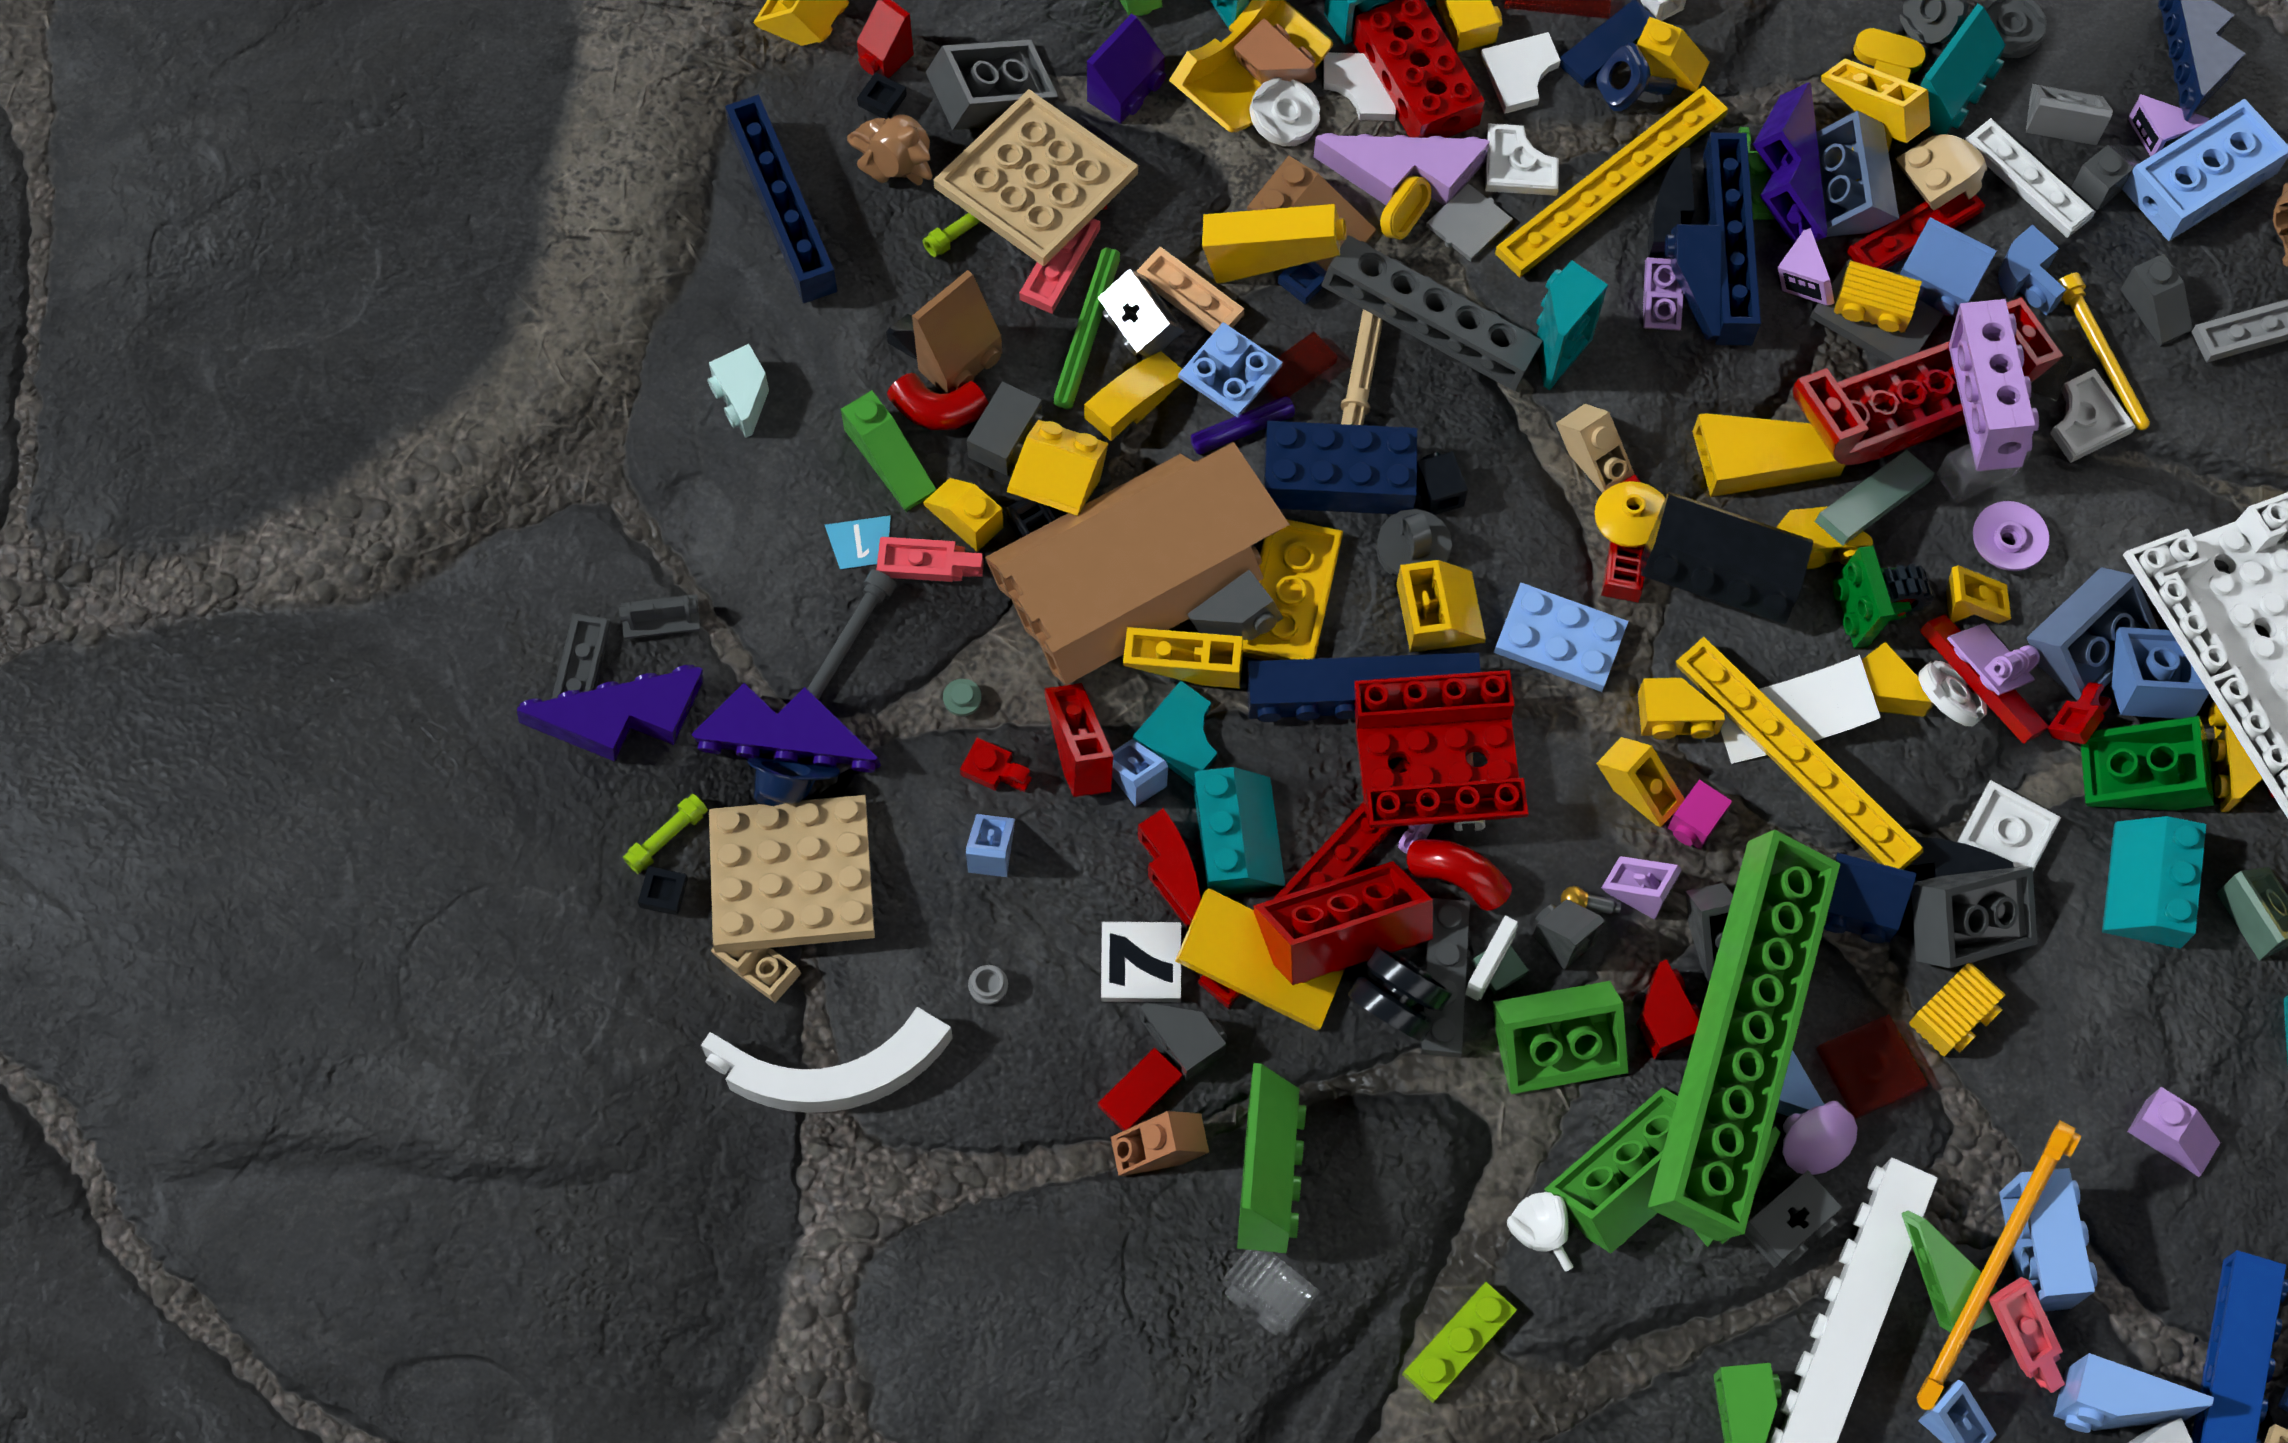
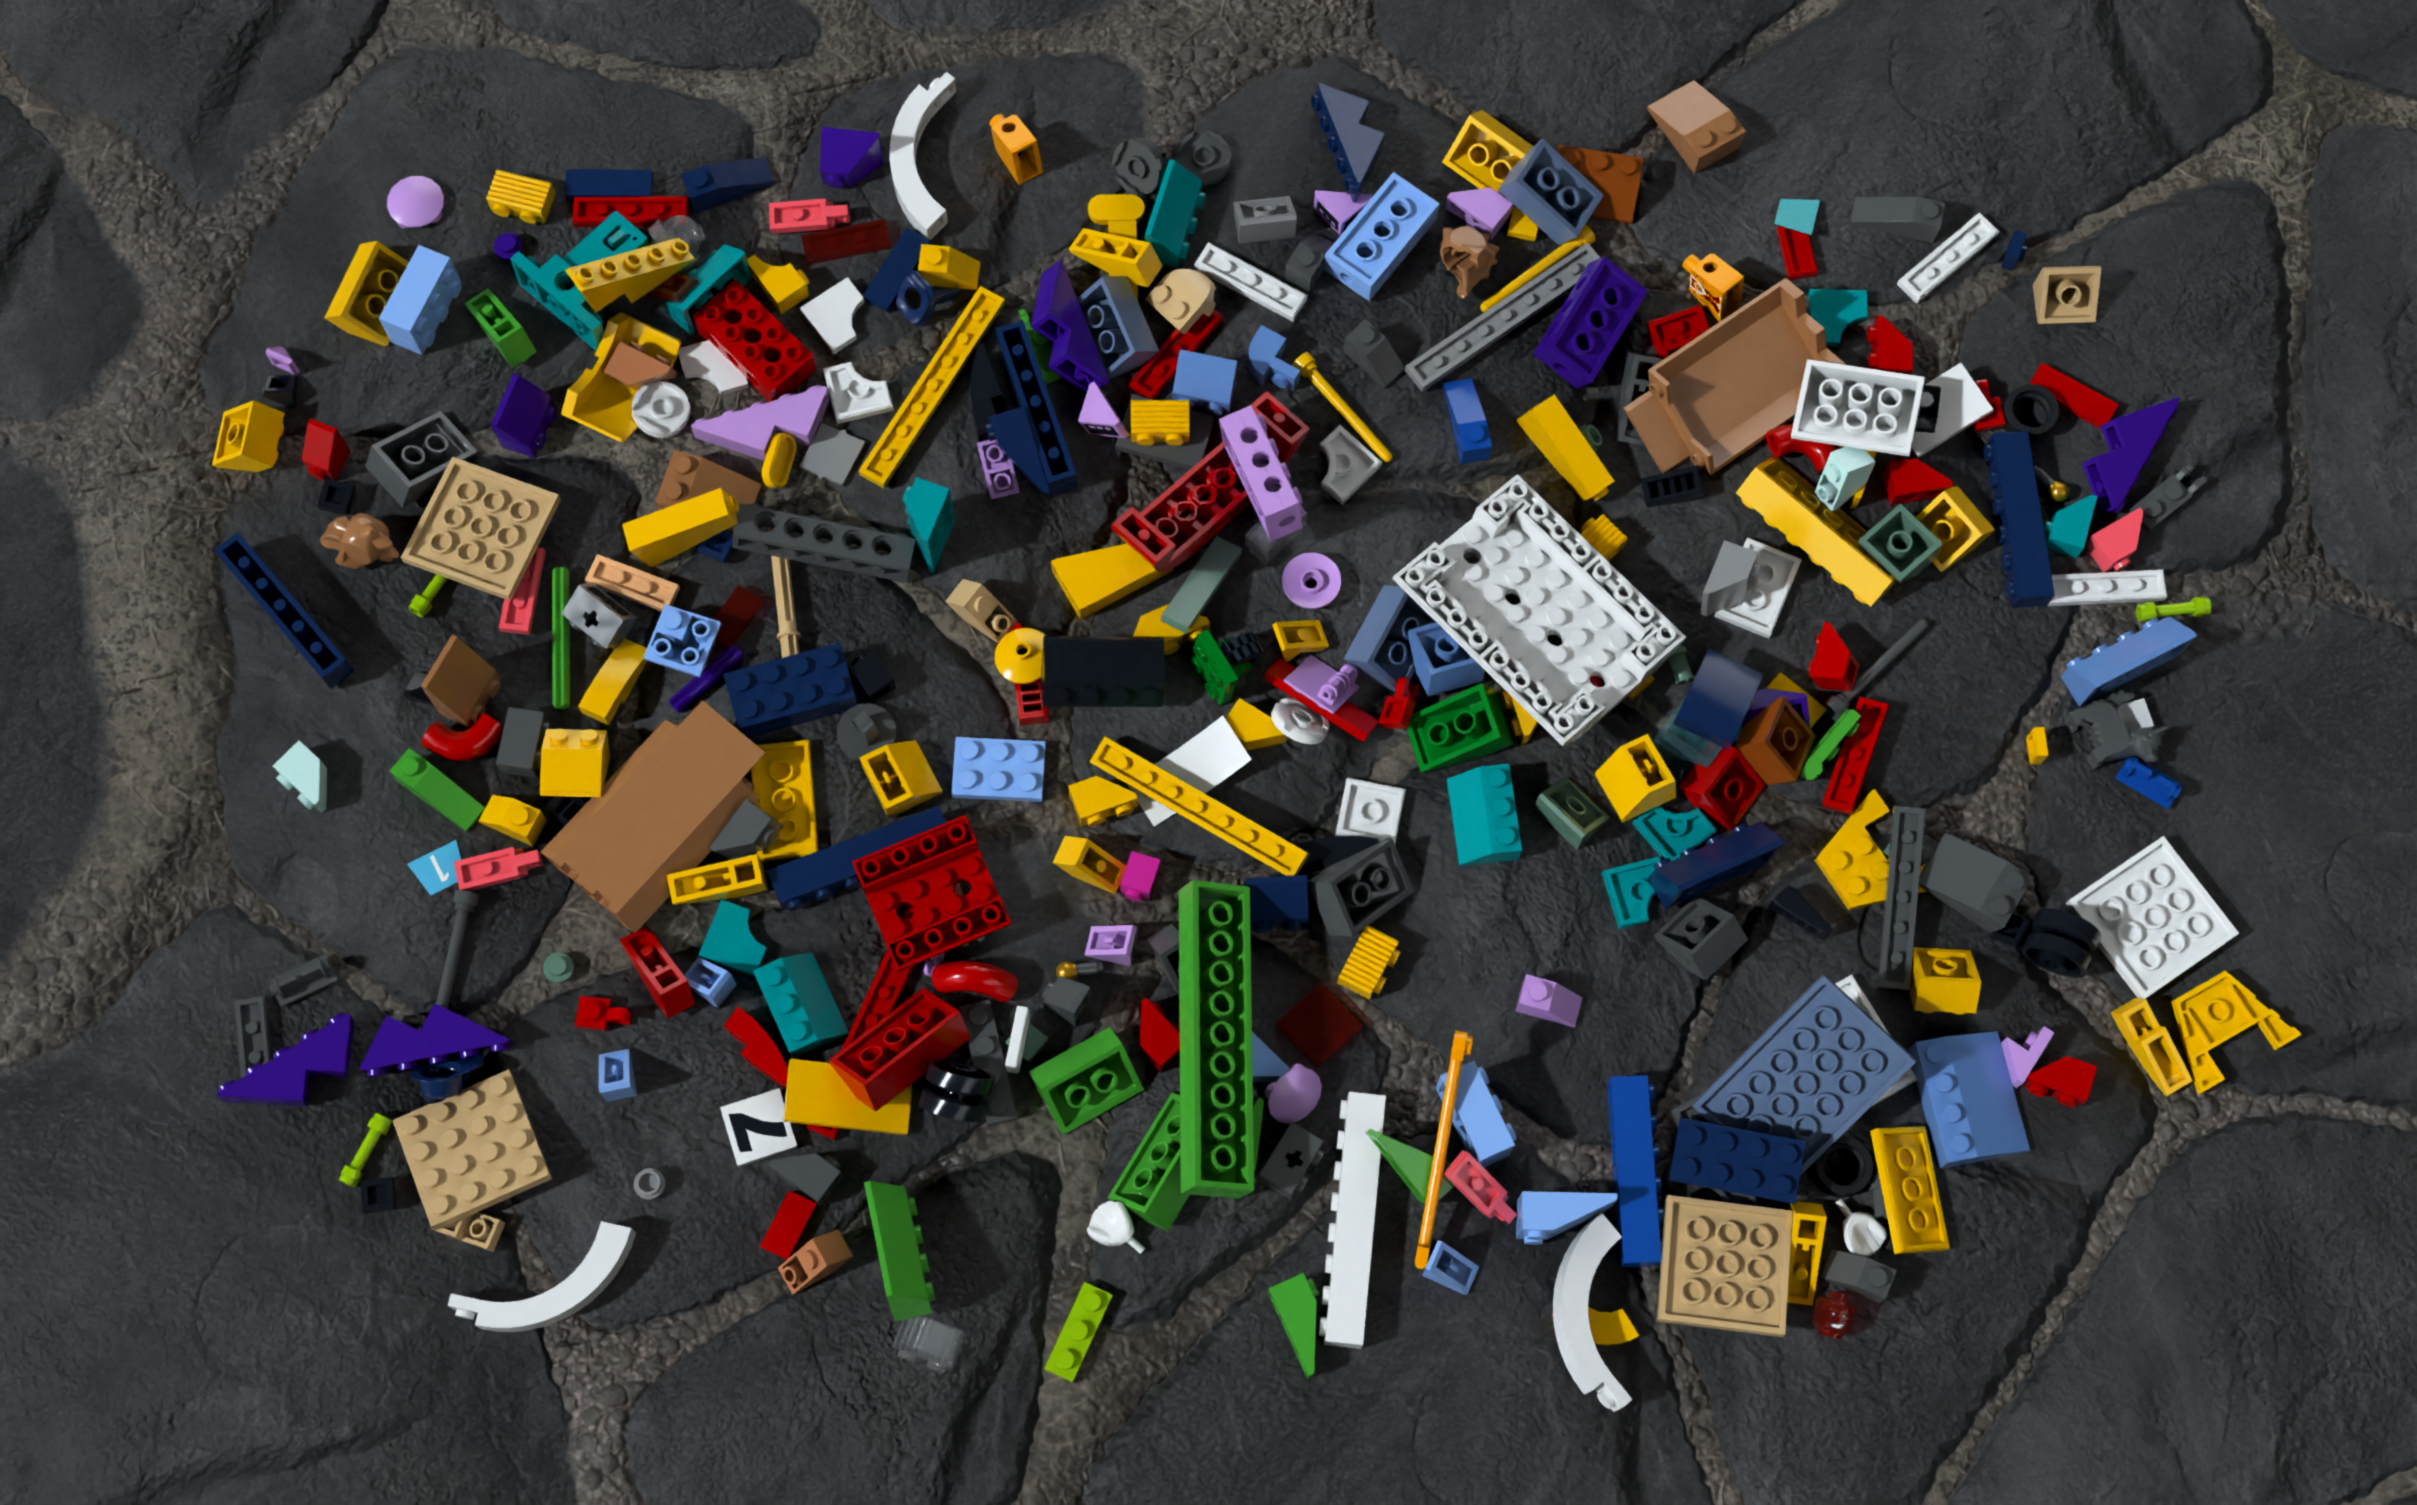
camera: 20 degrees left, 5 degrees up
(2256, 414) = (1467, 421): none -> blue slope

